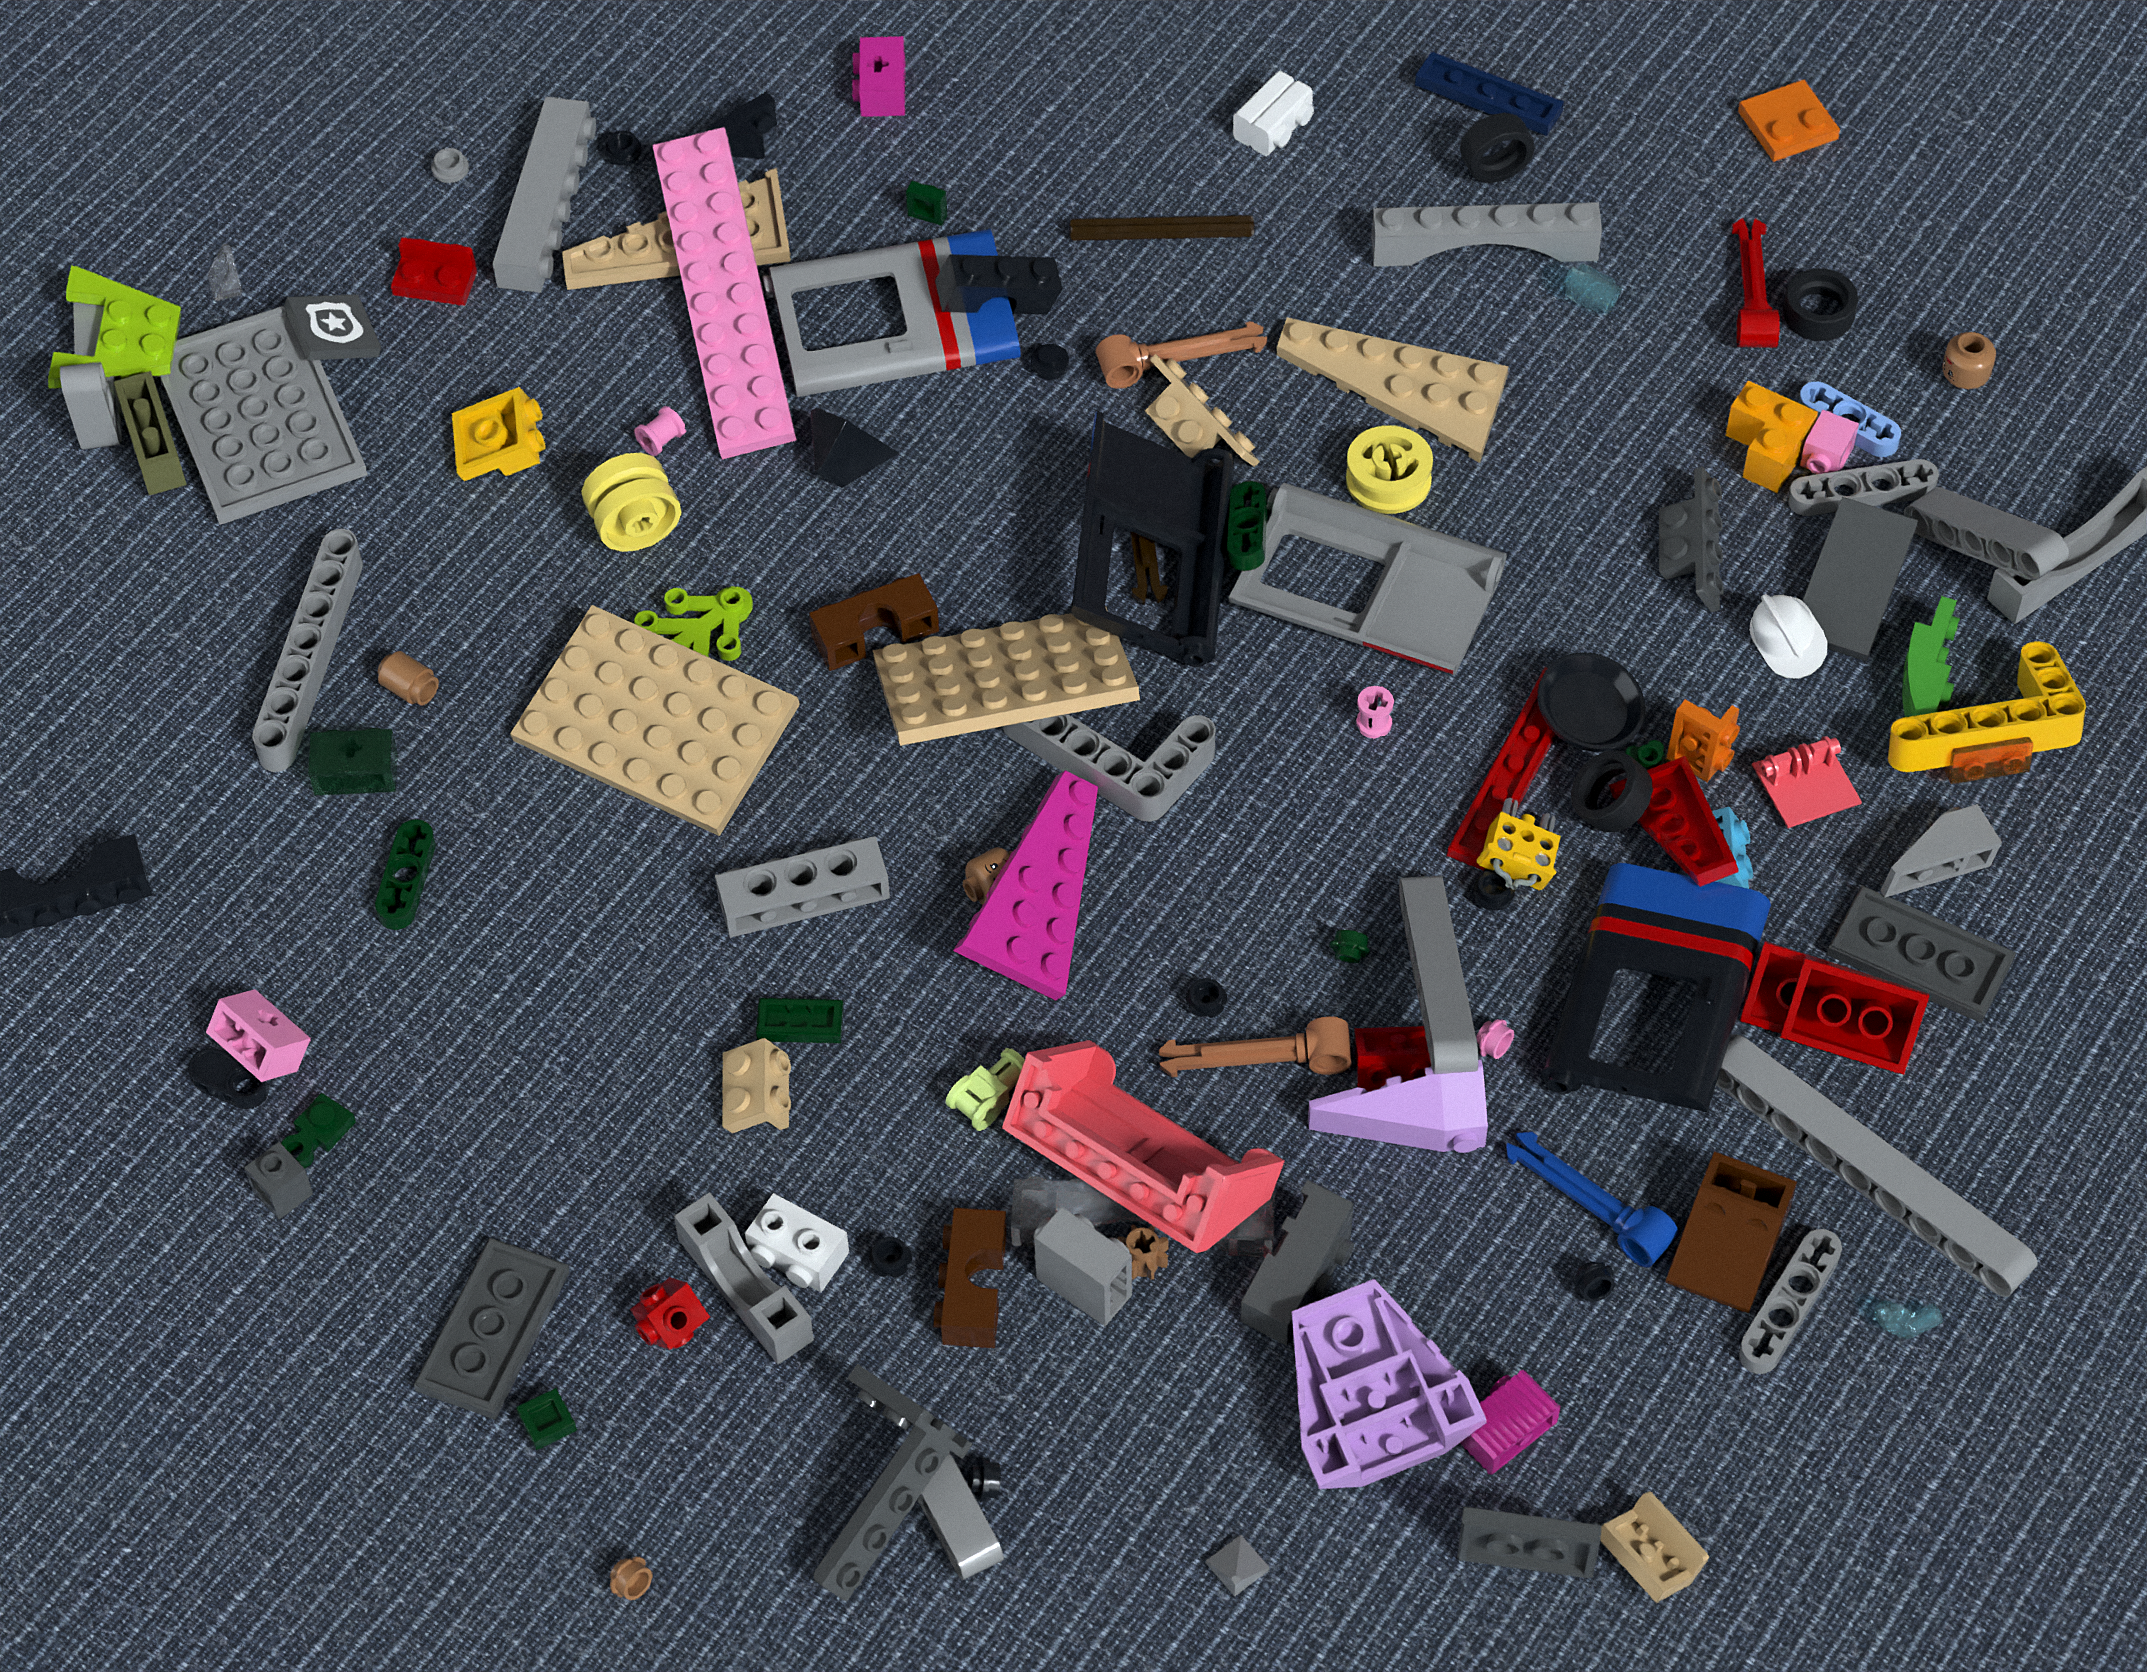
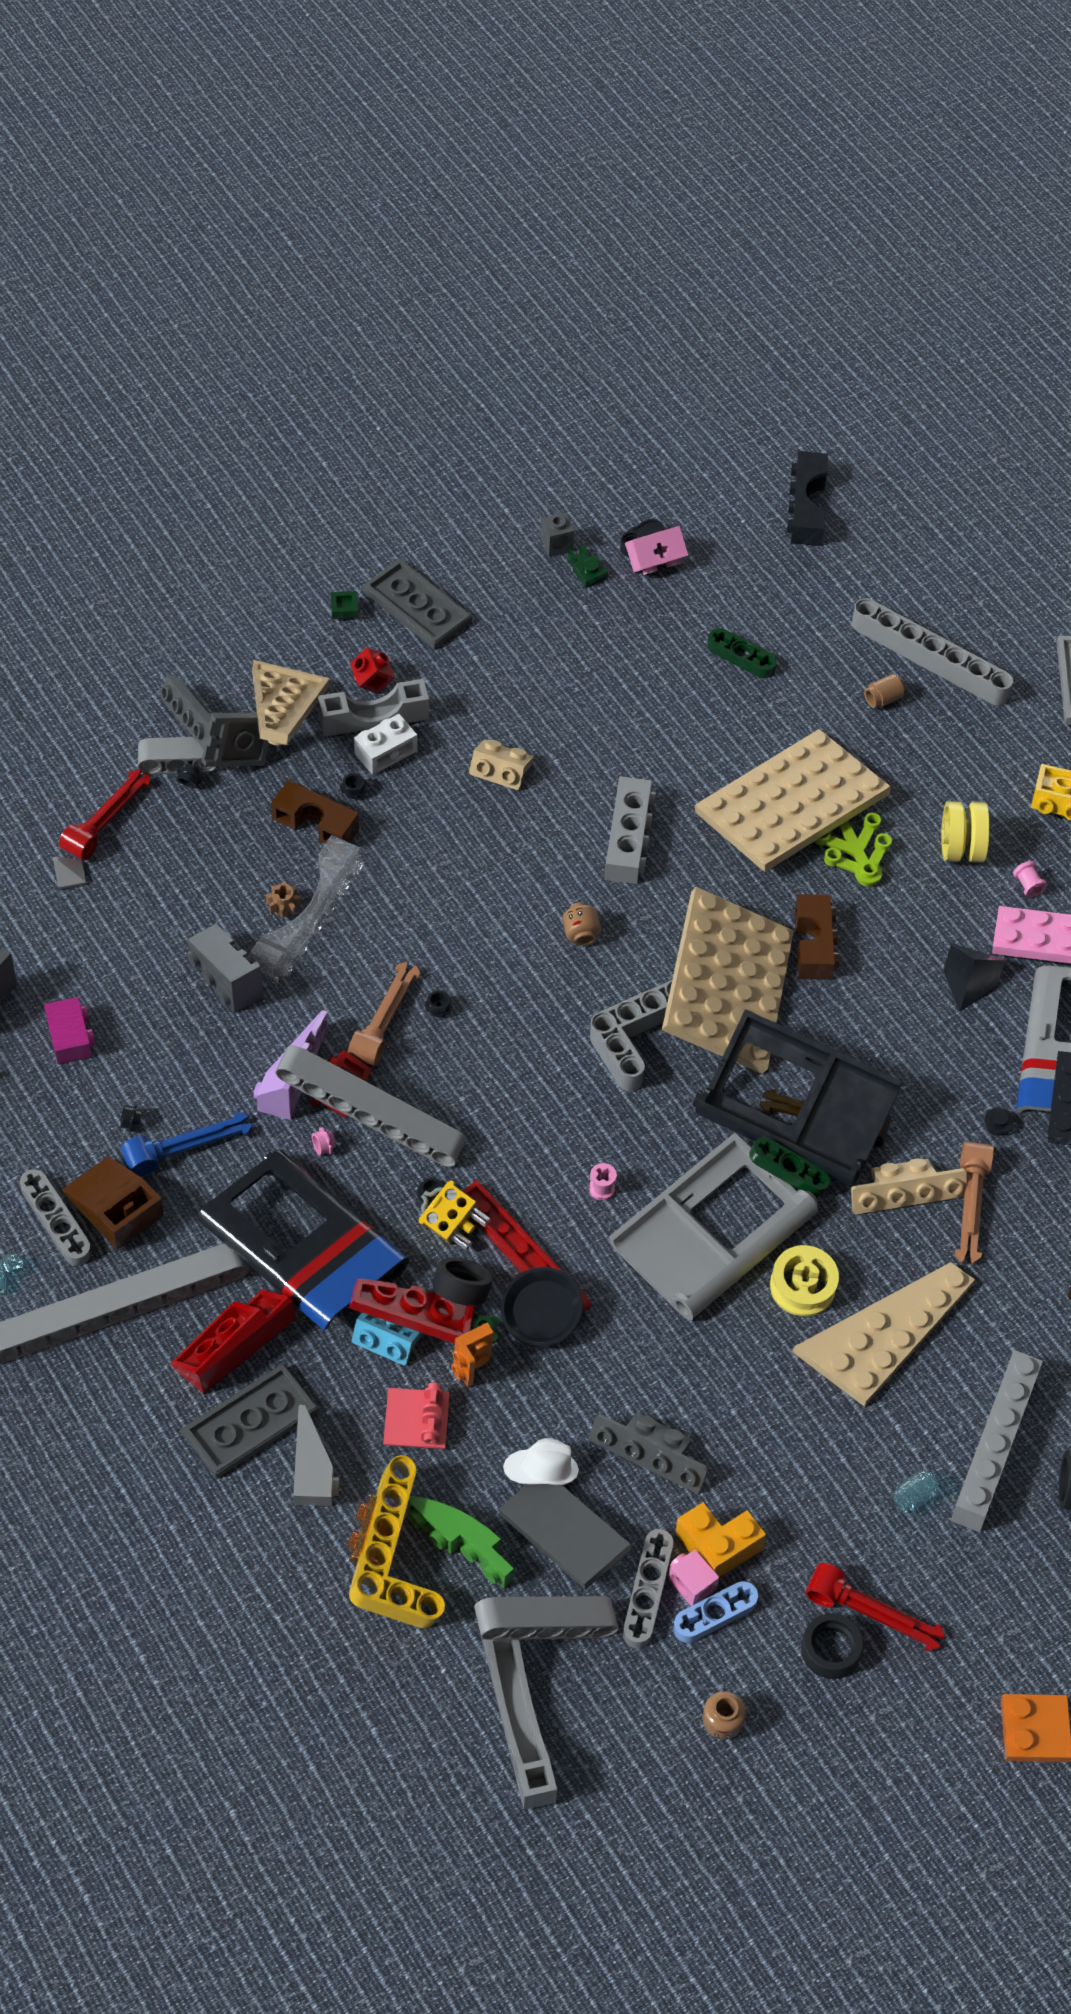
camera: 110 degrees right, 0 degrees up
(353, 761) = (834, 648): clear green brick -> none
(630, 1578) = (229, 610): medium nougat plate -> none
(791, 1387) = (284, 699): none -> tan wing
(800, 1020) = (535, 798): dark green plate -> none
(986, 1092) = (435, 869): yellowish green connector -> none
(1035, 899) = (547, 932): dark pink wing -> none
(1083, 1265) = (284, 857): light grey brick -> none
(1132, 1152) = (343, 910): coral windscreen -> none
(1178, 1568) = (82, 839): none -> red piece
(1350, 946) = (433, 1093): dark green plate -> none
(1374, 1390) = (120, 954): lavender wedge -> none

